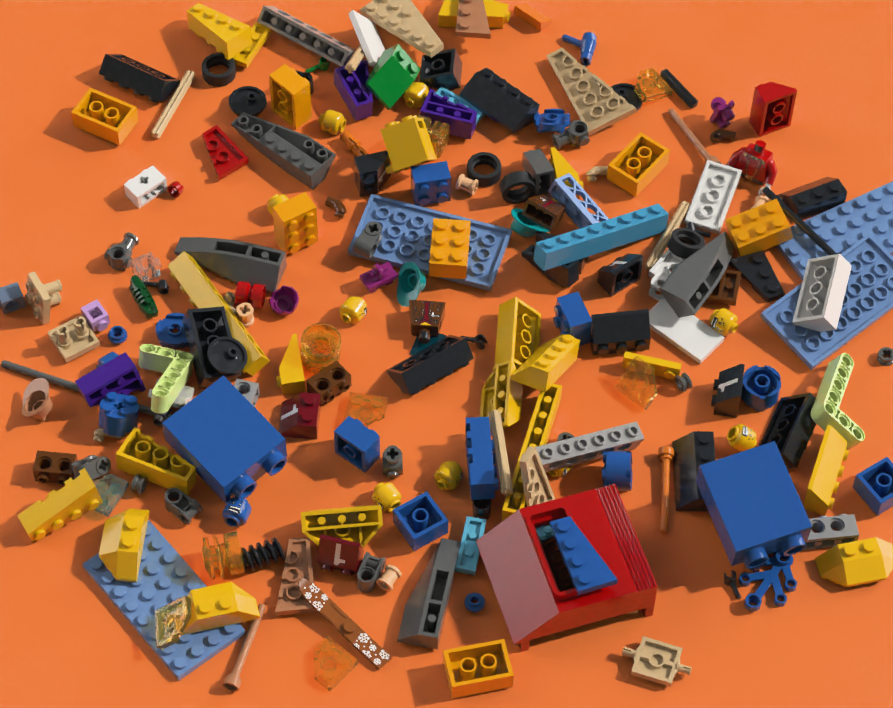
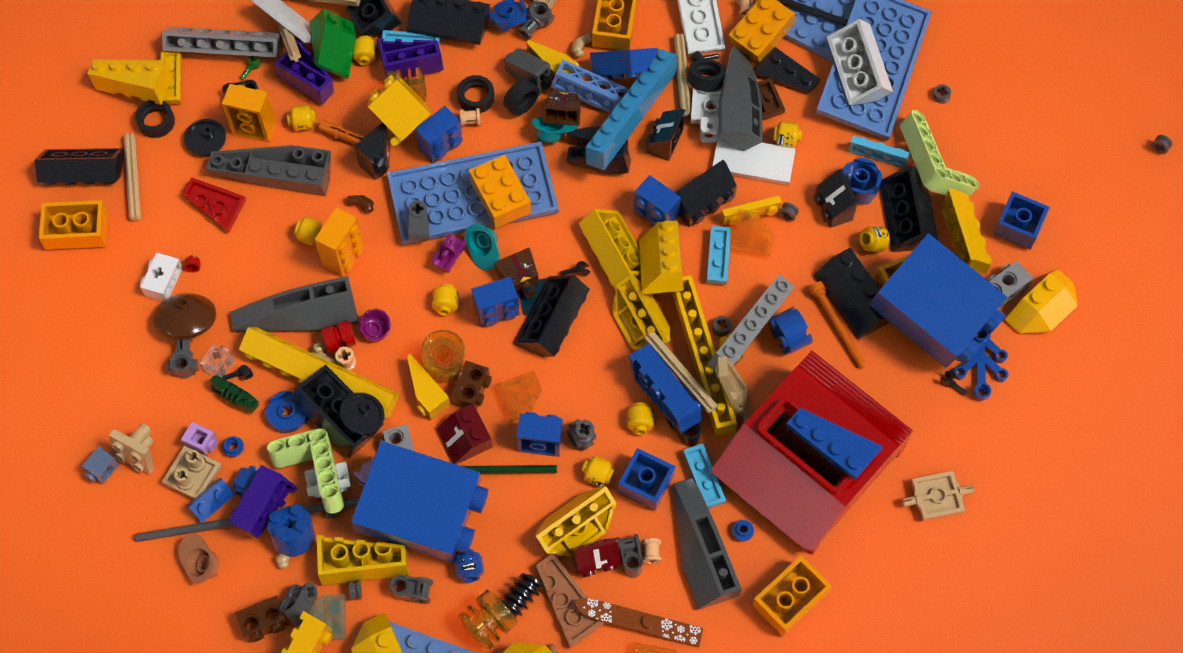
camera: 30 degrees left, 10 degrees up
(74, 363) = (210, 500): none -> blue plate
(144, 222) = (184, 316): none -> reddish brown dish
(321, 462) = (515, 469): none -> dark green bar
(389, 329) = (495, 302): none -> blue brick
(600, 386) = (718, 255): none -> medium azure plate
(618, 197) = (622, 62): none -> blue slope
(794, 372) = (878, 151): none -> medium azure plate

